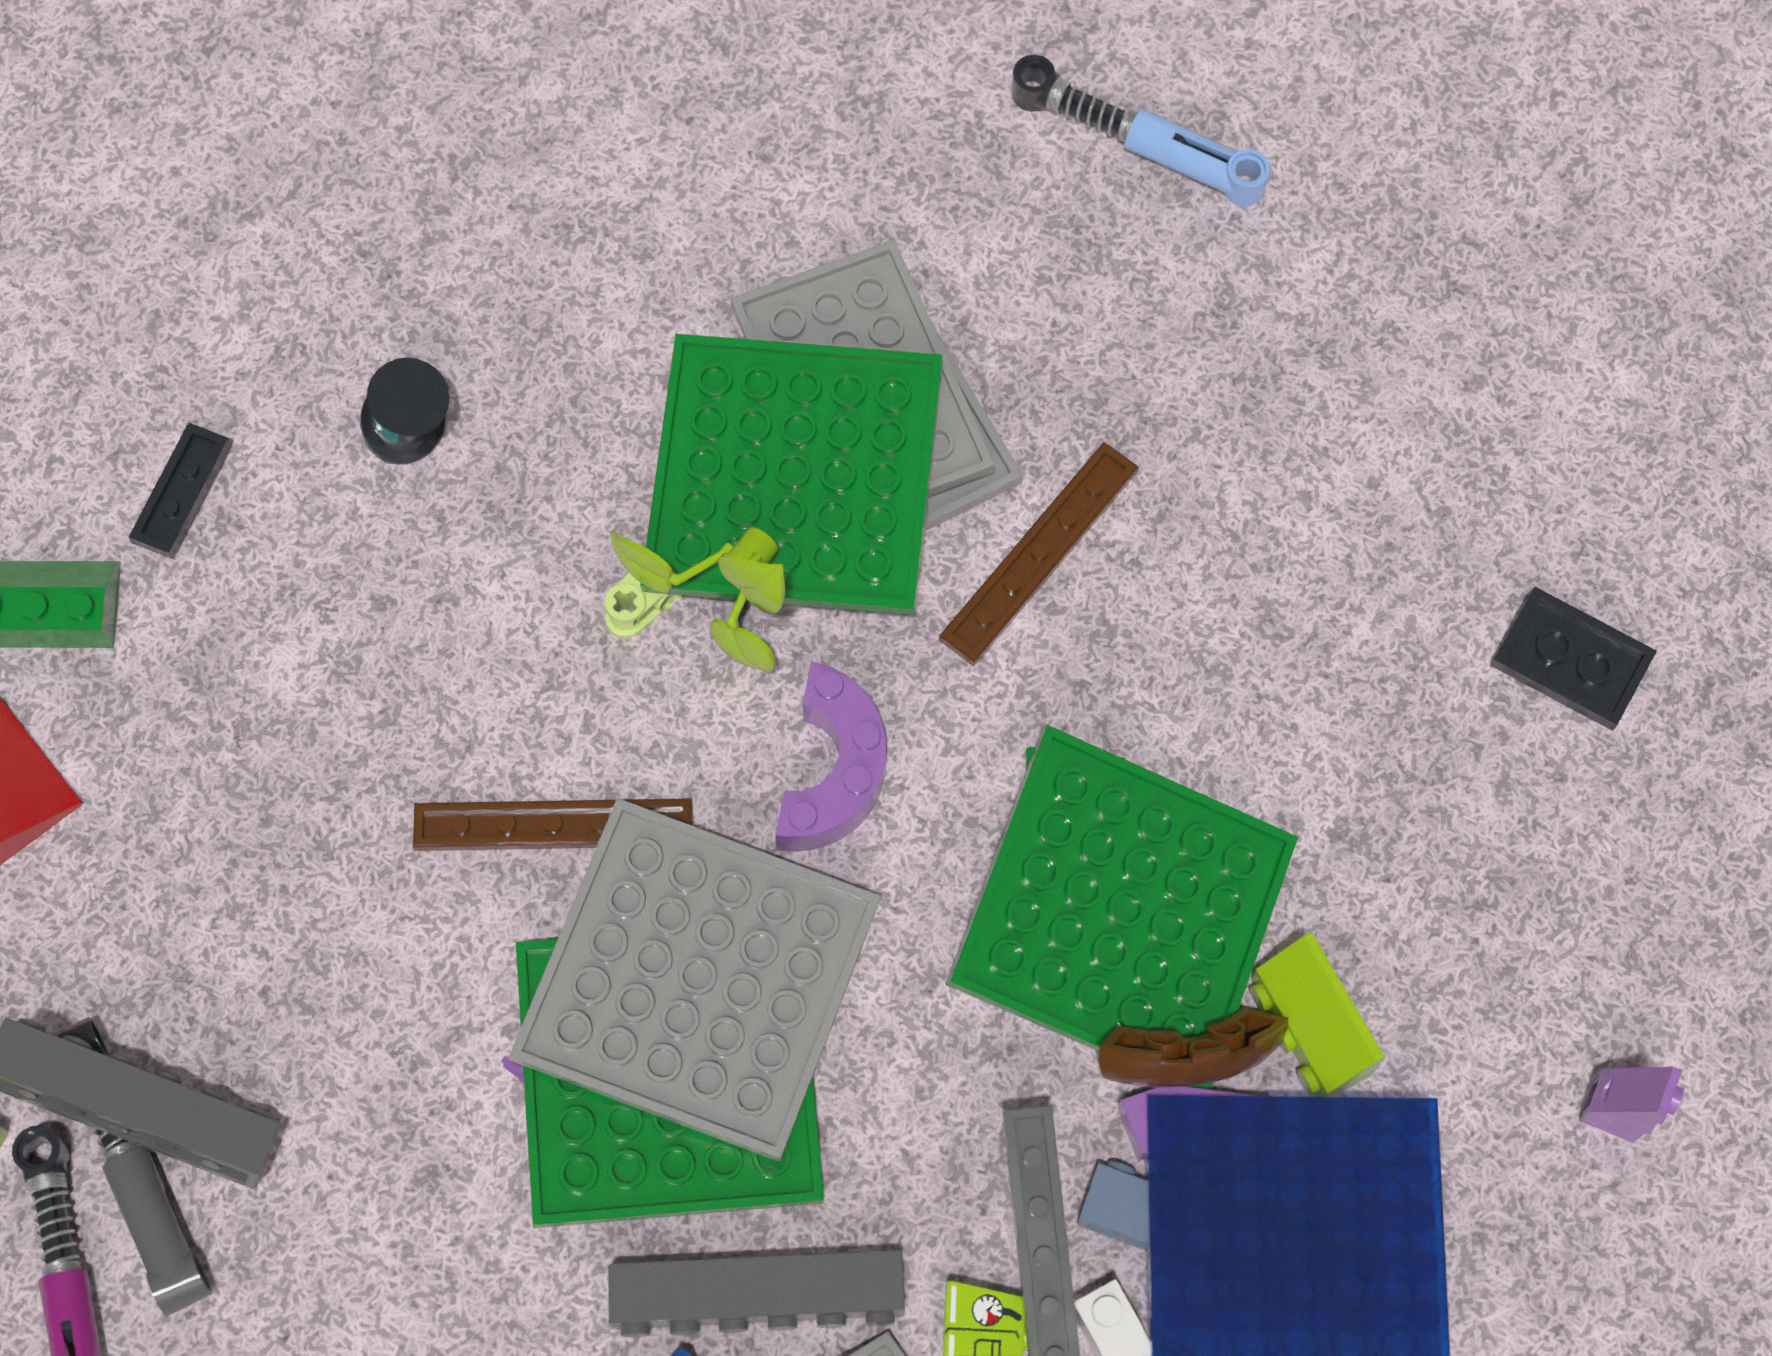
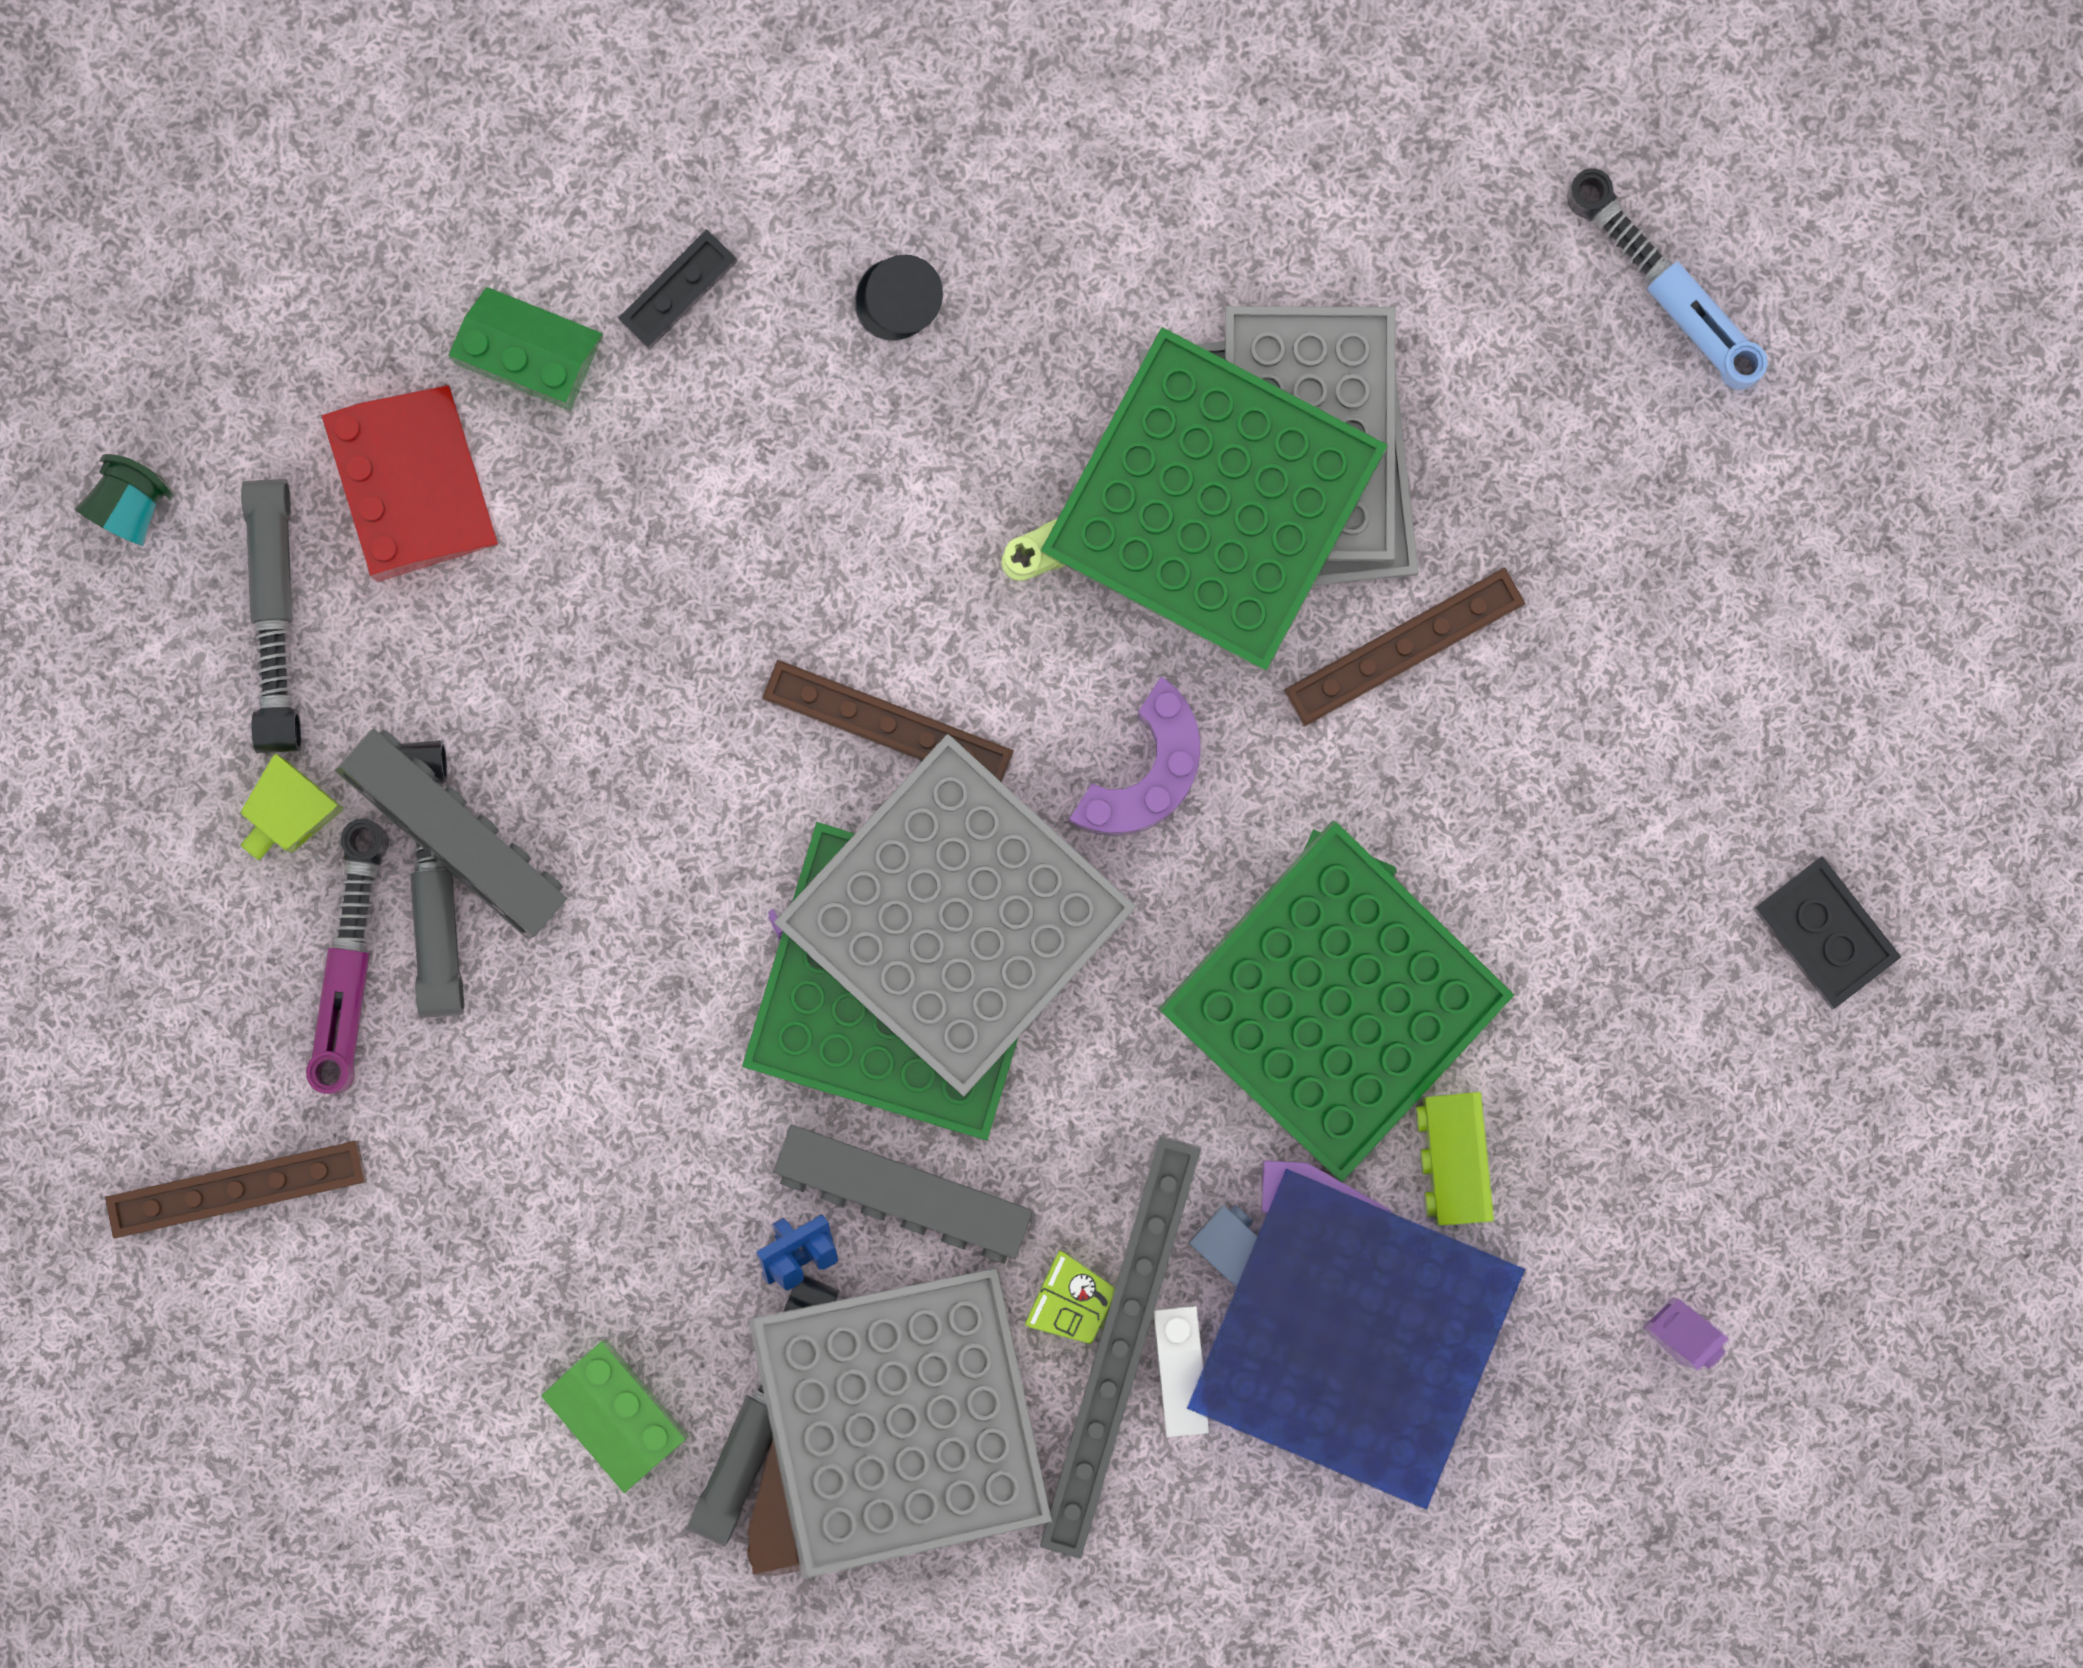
camera: 25 degrees right, 15 degrees up
(743, 566) = (1136, 573): lime plant -> none
(1170, 1061) = (1321, 1151): reddish brown brick -> none

